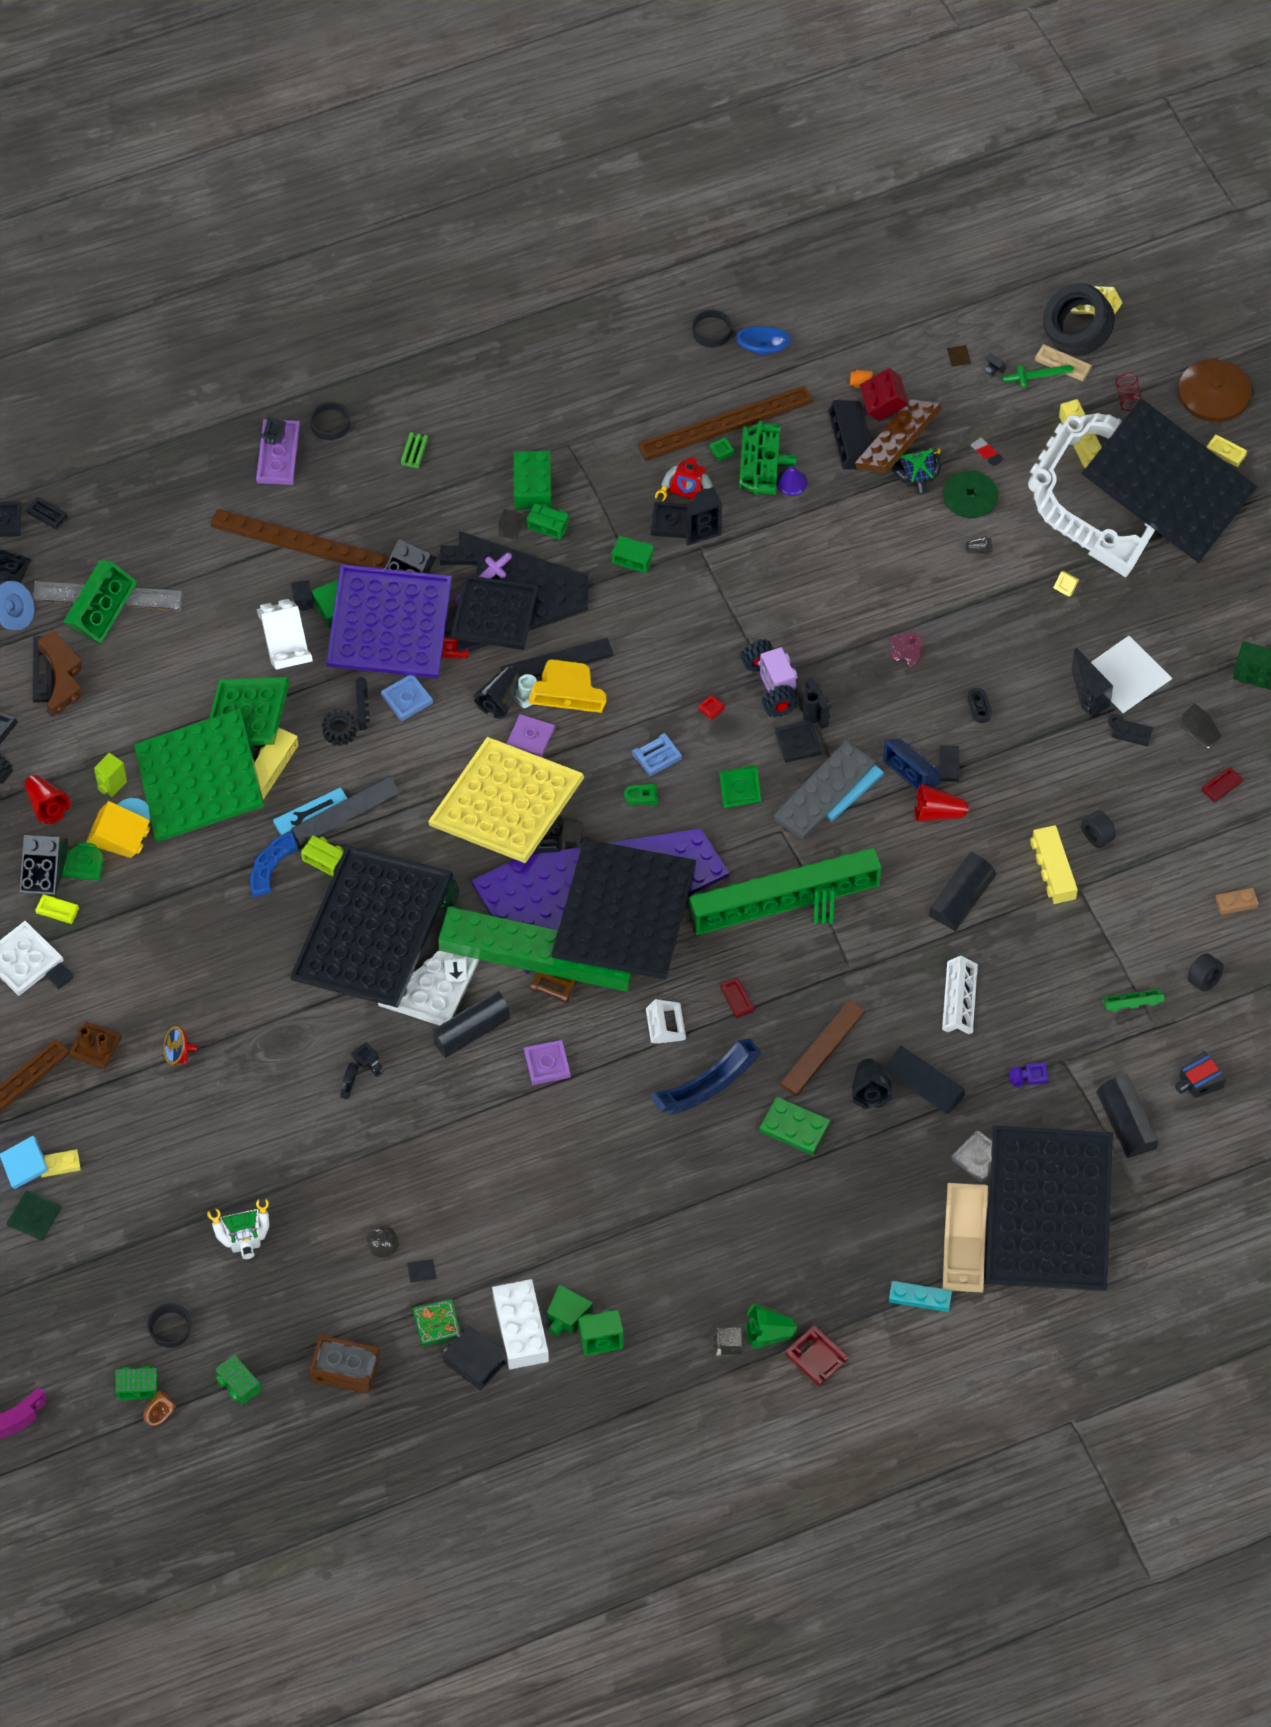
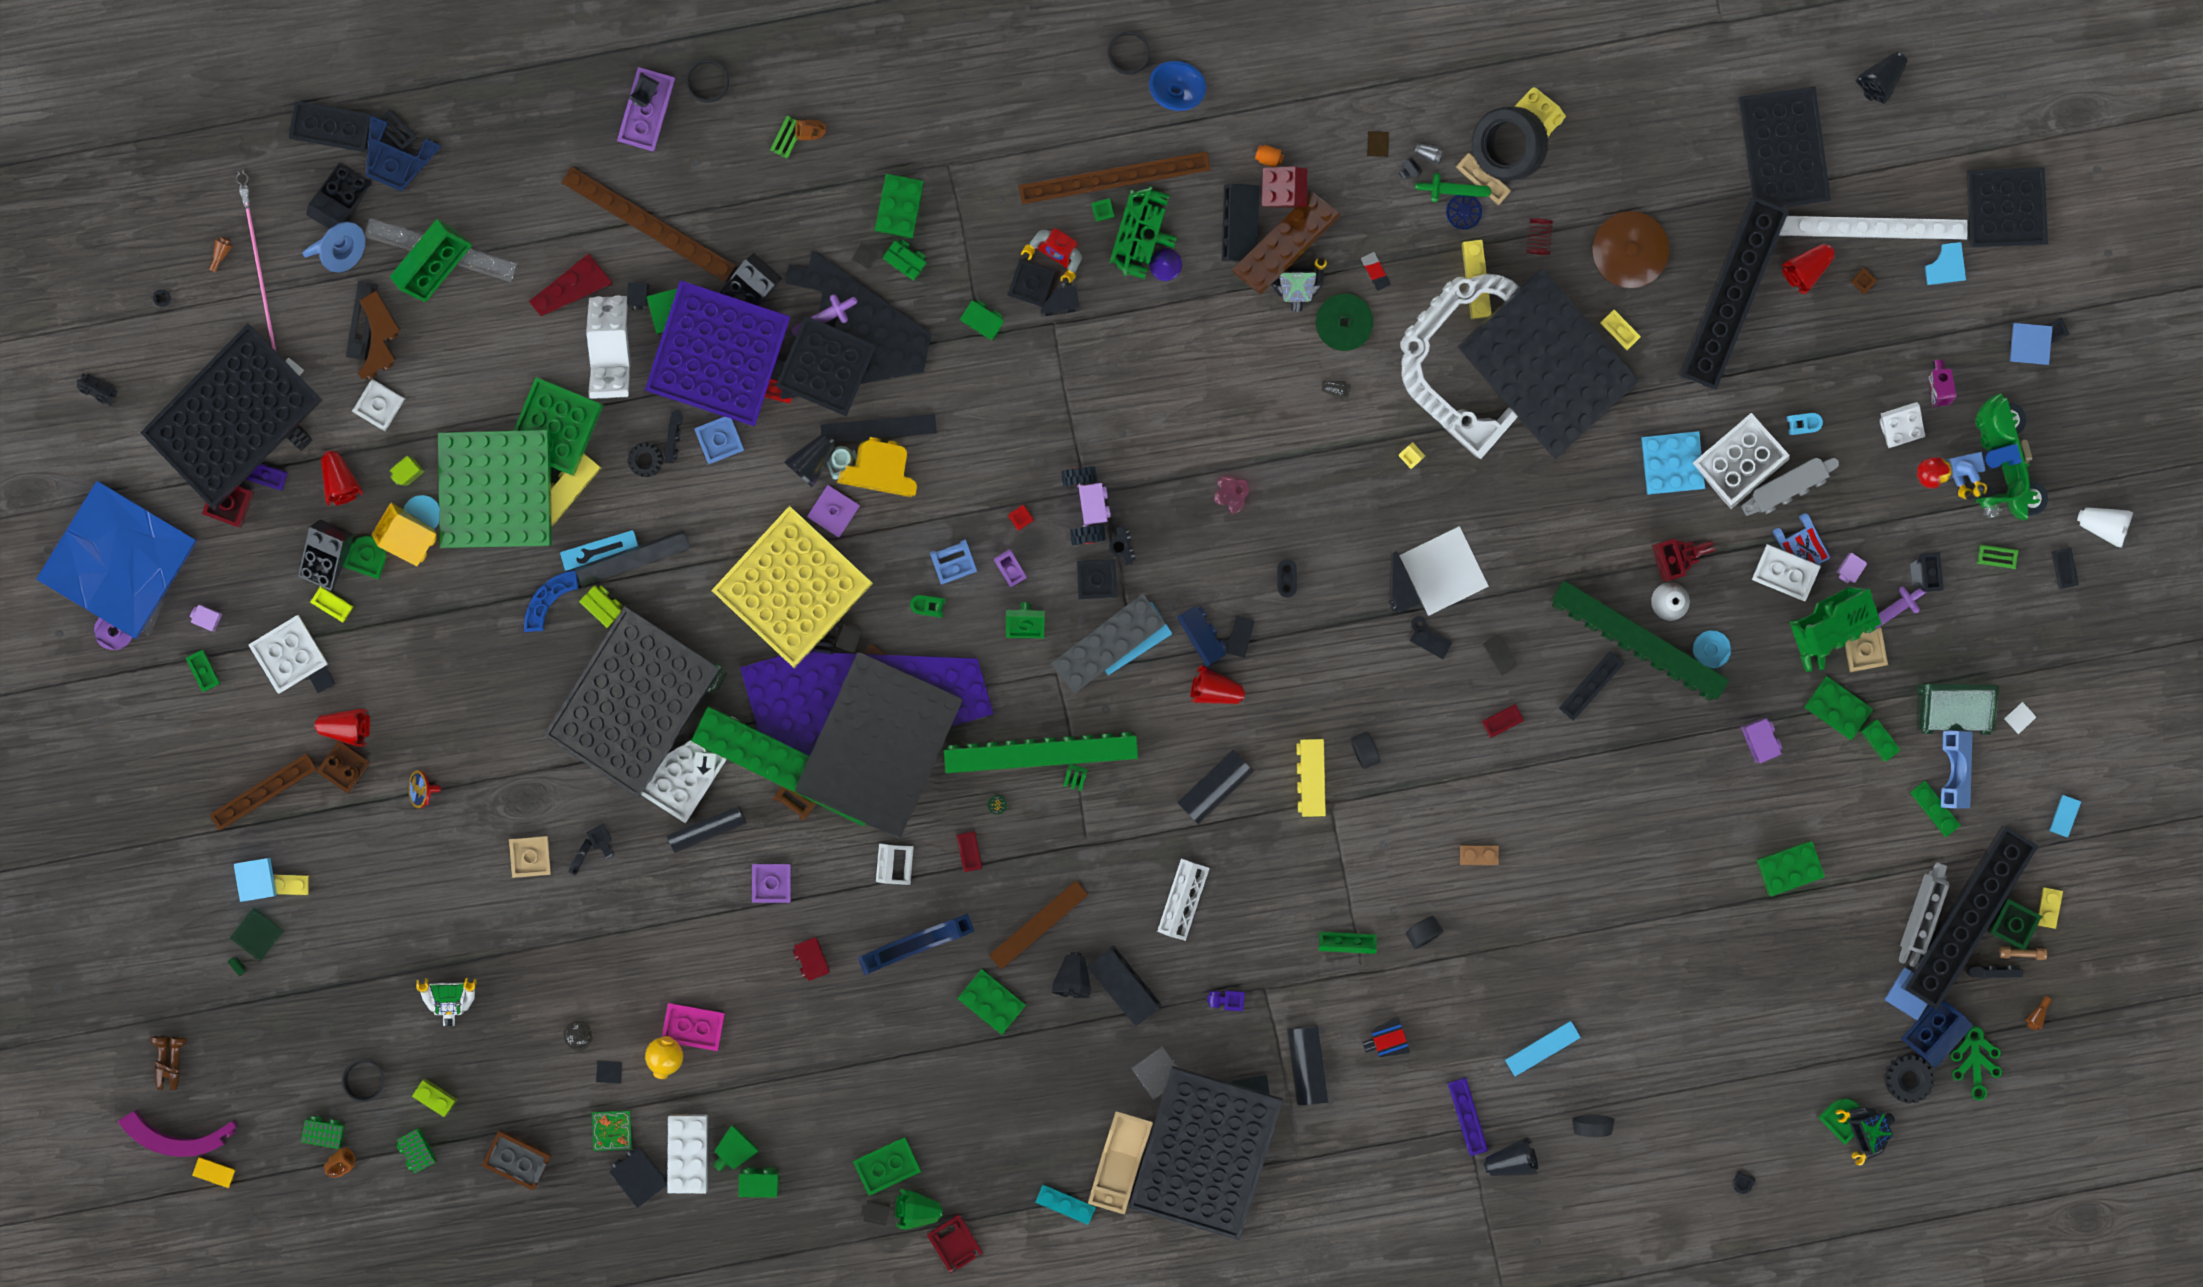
camera: 10 degrees right, 30 degrees up
(19, 1245) = (237, 966): none -> dark green tile
(28, 1448) = (214, 1172): none -> yellow tile
(49, 538) = (390, 164): none -> dark blue wing
(71, 734) = (378, 405): none -> white tile
(90, 1005) = (345, 726): none -> red cone
(237, 603) = (574, 284): none -> dark red wing
(246, 1325) = (434, 1097): none -> lime brick
(299, 1087) = (530, 856): none -> tan plate
(433, 437) = (809, 129): none -> dark orange rock
(475, 1236) = (664, 1056): none -> yellow brick
(498, 1207) = (693, 1026): none -> dark pink plate
(604, 1120) = (811, 958): none -> dark red brick
(711, 743) = (1010, 568): none -> medium lavender slope
(728, 1296) = (887, 1166): none -> green plate
(753, 951) = (997, 804): none -> tile
(1008, 350) = (1430, 153): none -> flat silver cone
(1053, 390) = (1464, 212): none -> clear blue wheel

